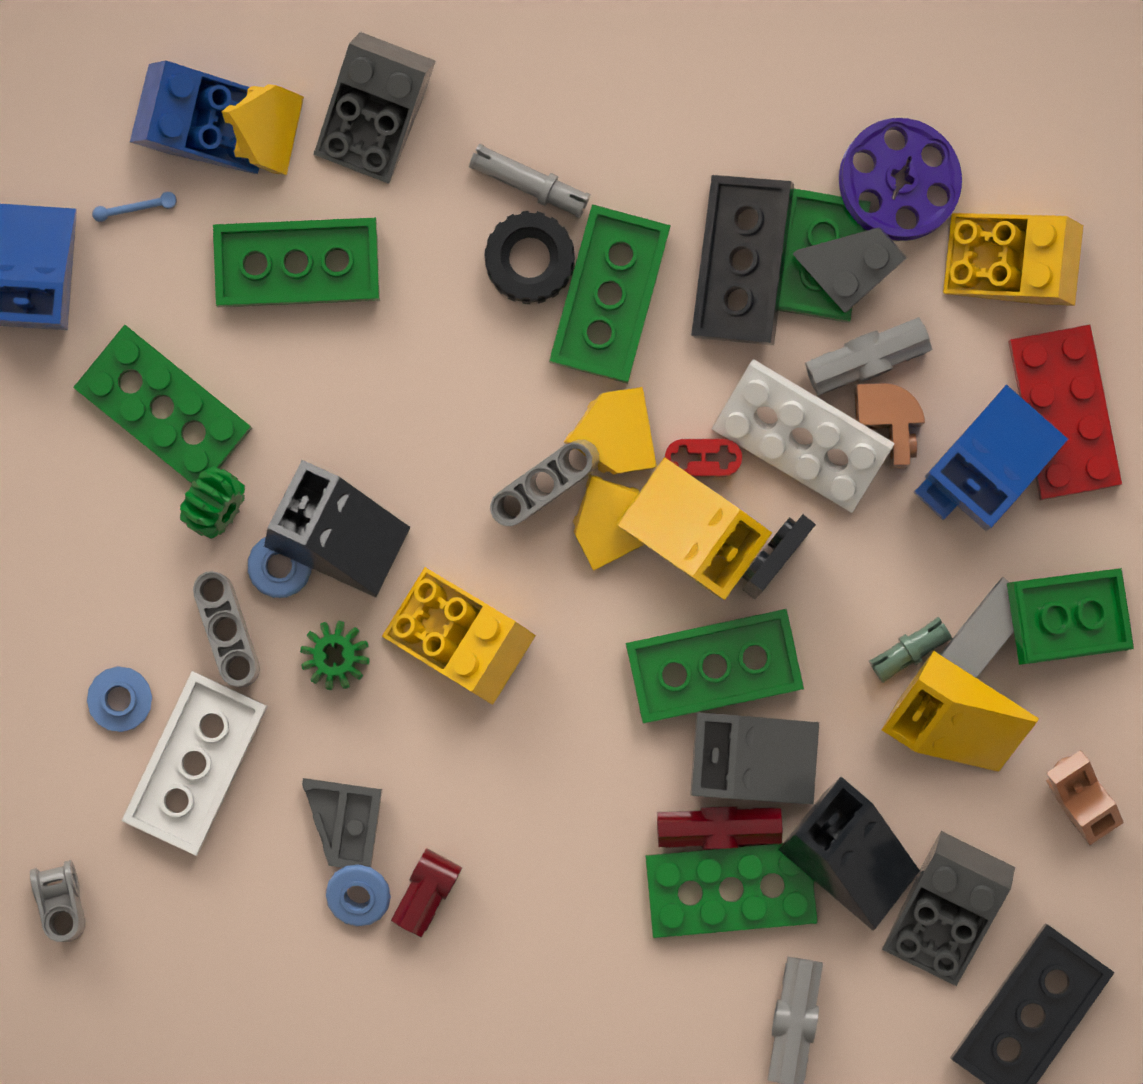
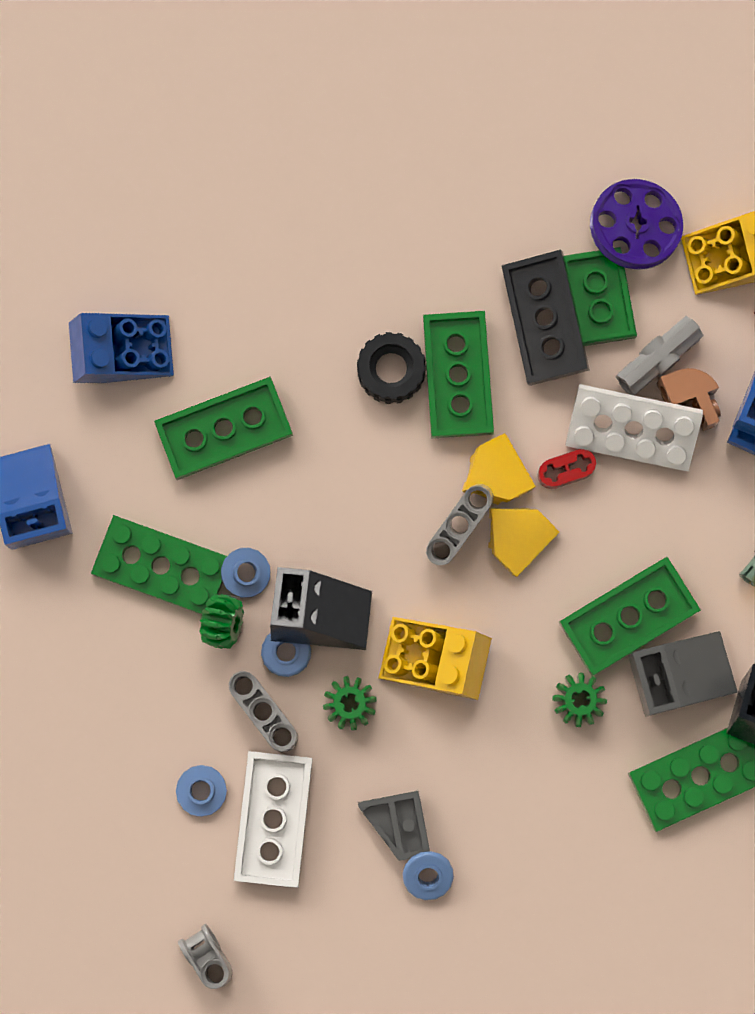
camera: 20 degrees left, 5 degrees down
(166, 200) = (114, 416): medium blue hinge -> none
(244, 442) = (231, 579): none -> medium blue piece
(265, 126) = (168, 338): yellow slope -> none
(373, 106) = (241, 299): dark grey slope -> none
(429, 885) = (478, 849): dark red piece -> none
(530, 181) = (370, 313): light grey pin -> none
(618, 733) = (591, 697): none -> green gear
(694, 528) = (581, 520): yellow slope -> none
(719, 827) = (676, 733): dark red piece -> none
(783, 546) = (652, 513): black plate -> none
(851, 264) = (625, 294): dark grey wing -> none

